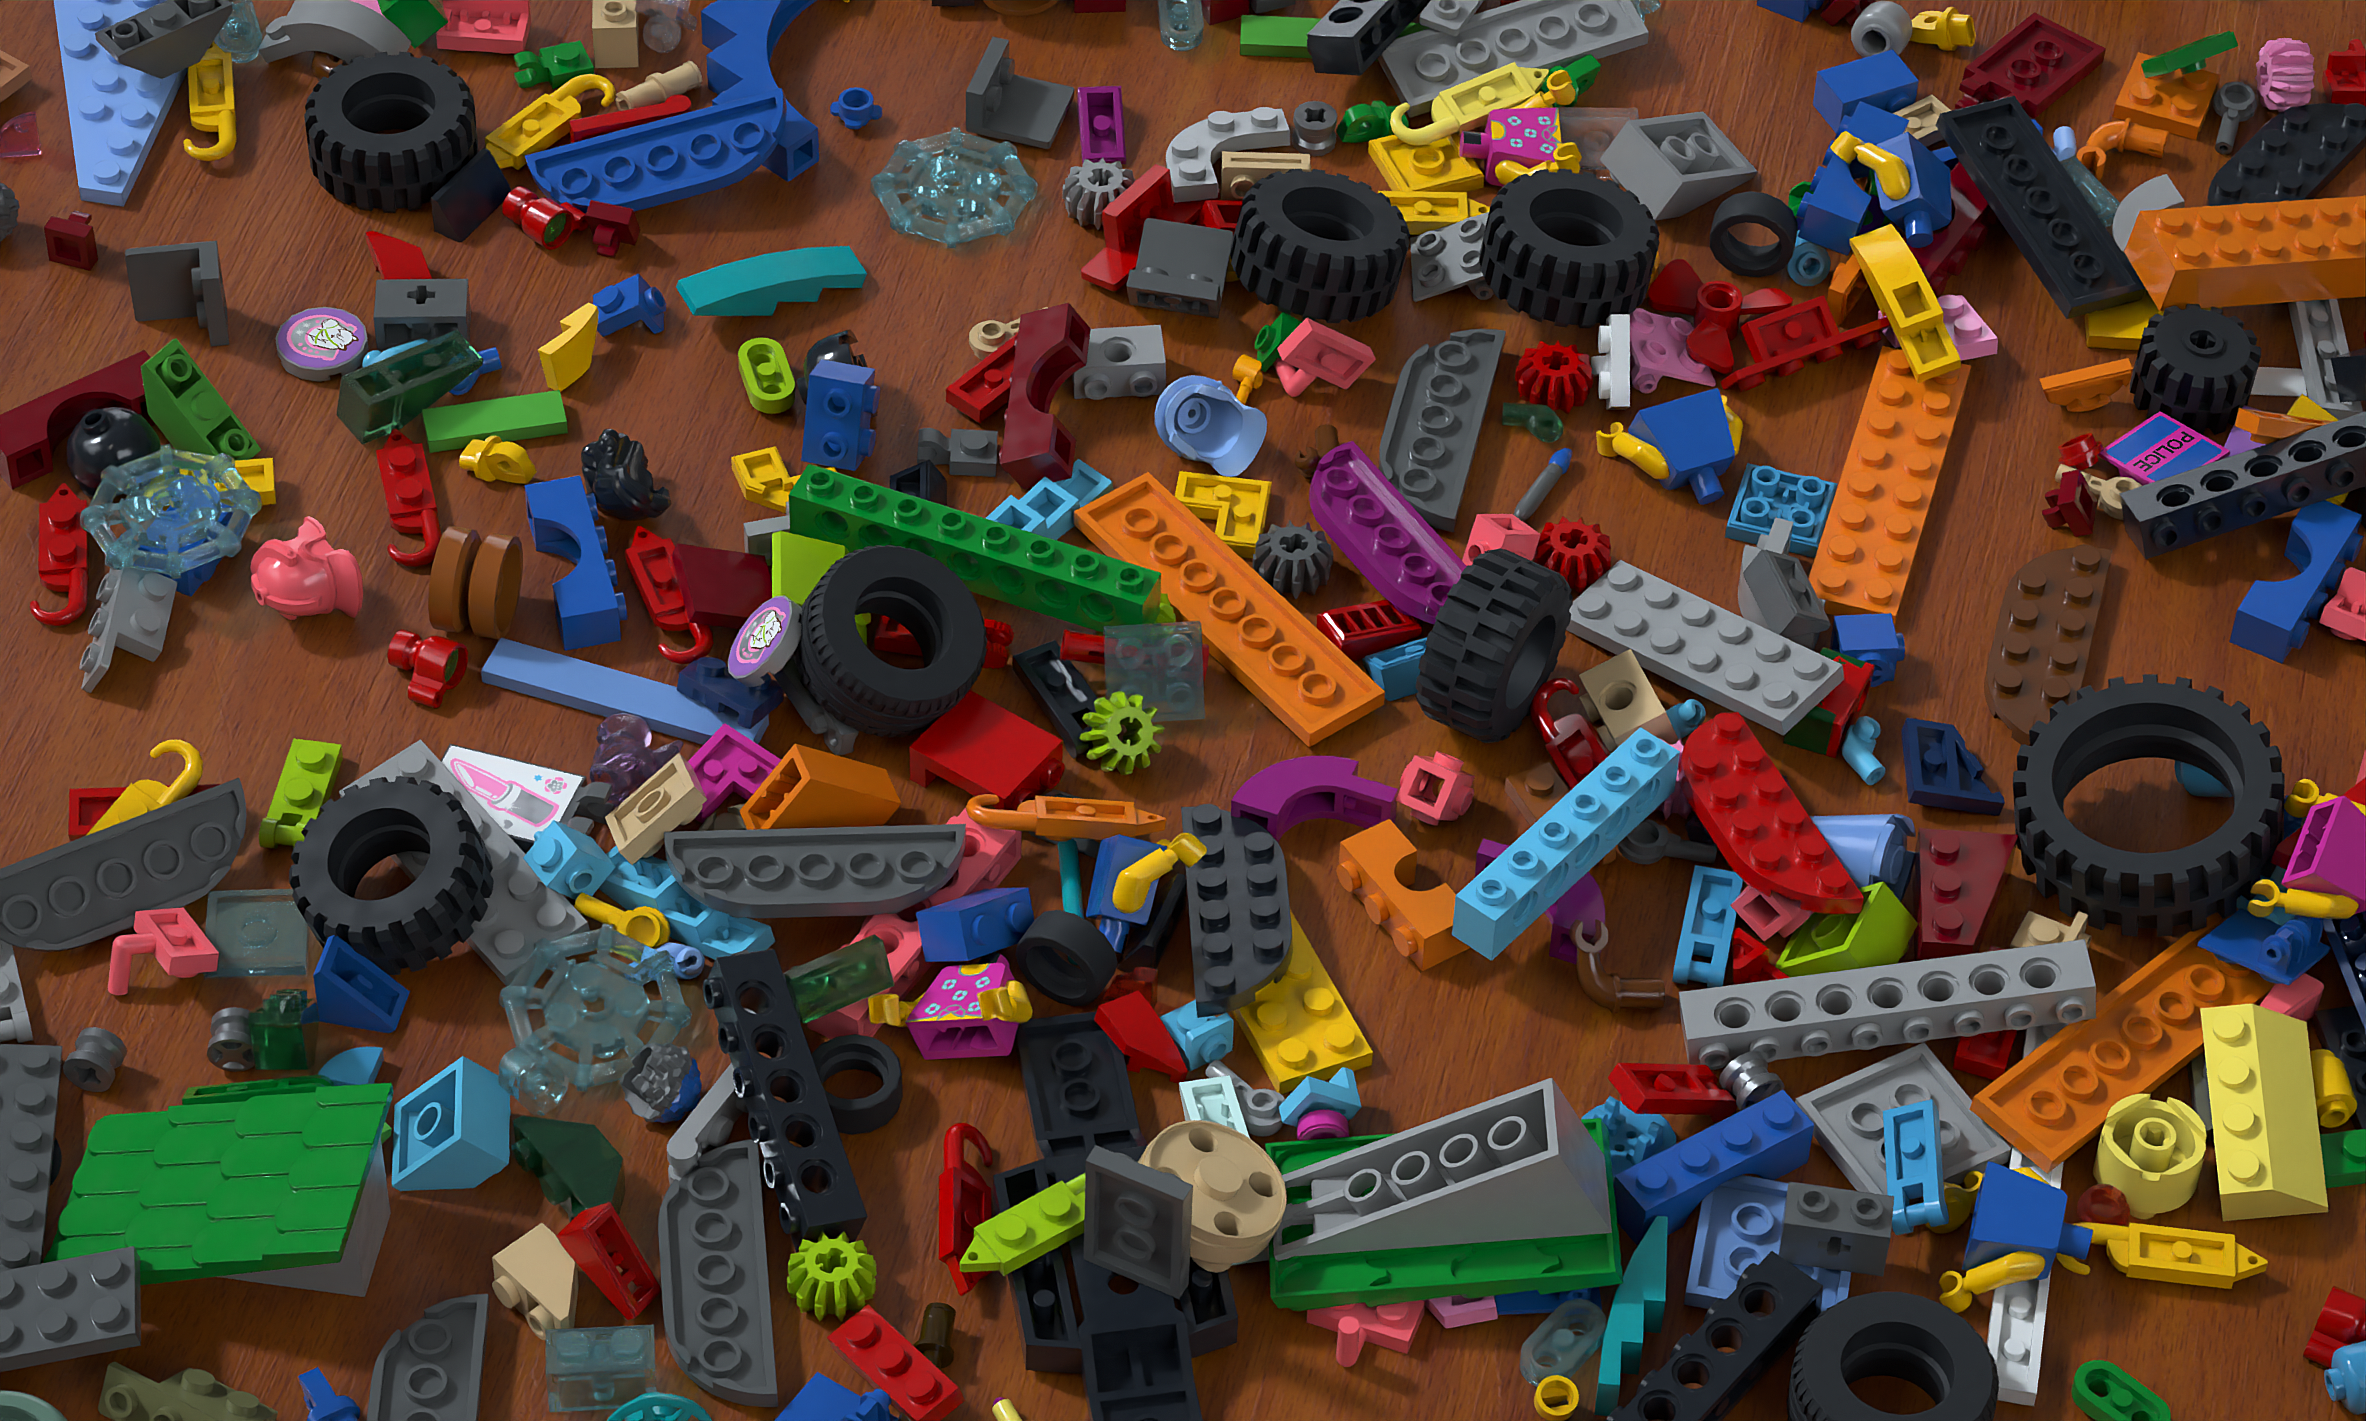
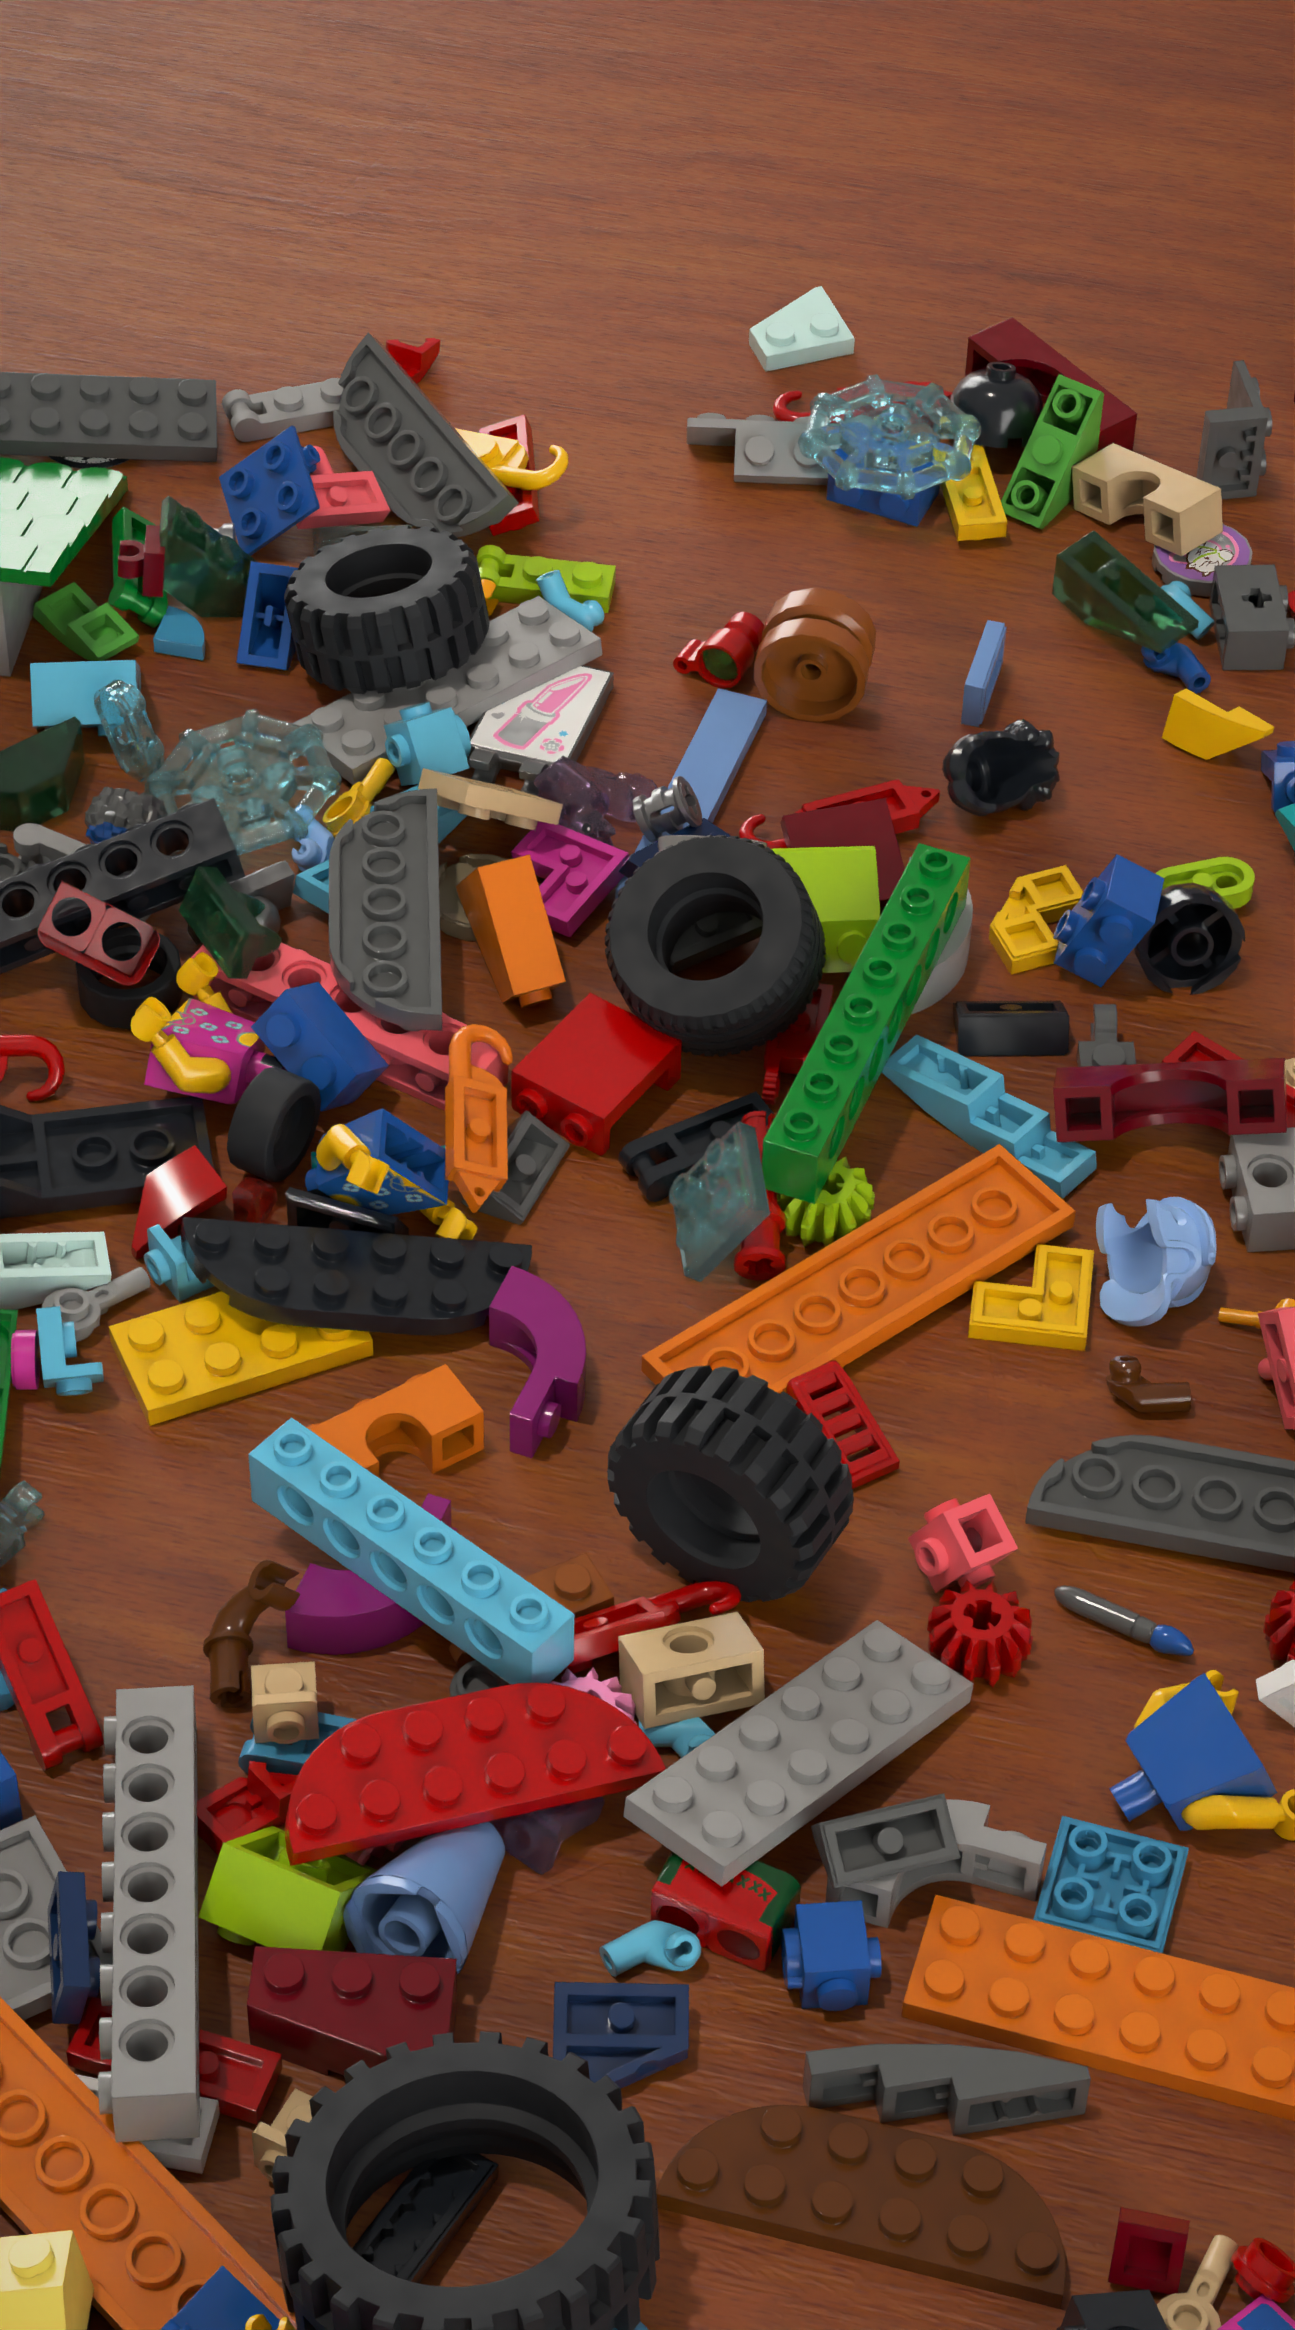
camera: 90 degrees right, 0 degrees up
(95, 1059) = (194, 465): flat silver wheel -> none
(174, 980) = (271, 490): none -> blue hinge
(284, 333) = (1176, 506): none -> tan arch
(295, 1059) = (144, 560): none -> dark red tile
(306, 575) = (810, 541): coral helmet -> none
(340, 776) = (556, 593): none -> medium azure arm
(409, 497) = (960, 631): red plate -> none
(480, 489) = (983, 673): none -> medium blue tile
(497, 460) = (1037, 685): yellow piece -> none
(506, 417) = (1102, 687): bright green tile -> none
(584, 600) = (824, 758): blue arch -> none
(677, 690) = (686, 809): none -> flat silver bush
(861, 1071) = (123, 972): none -> red piece
(1107, 725) = (626, 1177): lime gear -> none
(1293, 559) = (943, 1349): dark grey gear -> none
(1382, 533) = (982, 1440): magenta plate -> none
(1420, 788) = (547, 1466): coral brick -> none
(1536, 418) = (1247, 1617): clear green arm -> none
(1687, 940) = (284, 1702): none -> tan bracket
(1750, 1080) = (67, 1775): flat silver wheel -> none
(1935, 1051) = (70, 1926): none -> dark blue plate
(1964, 598) = (972, 2084): none -> dark grey slope

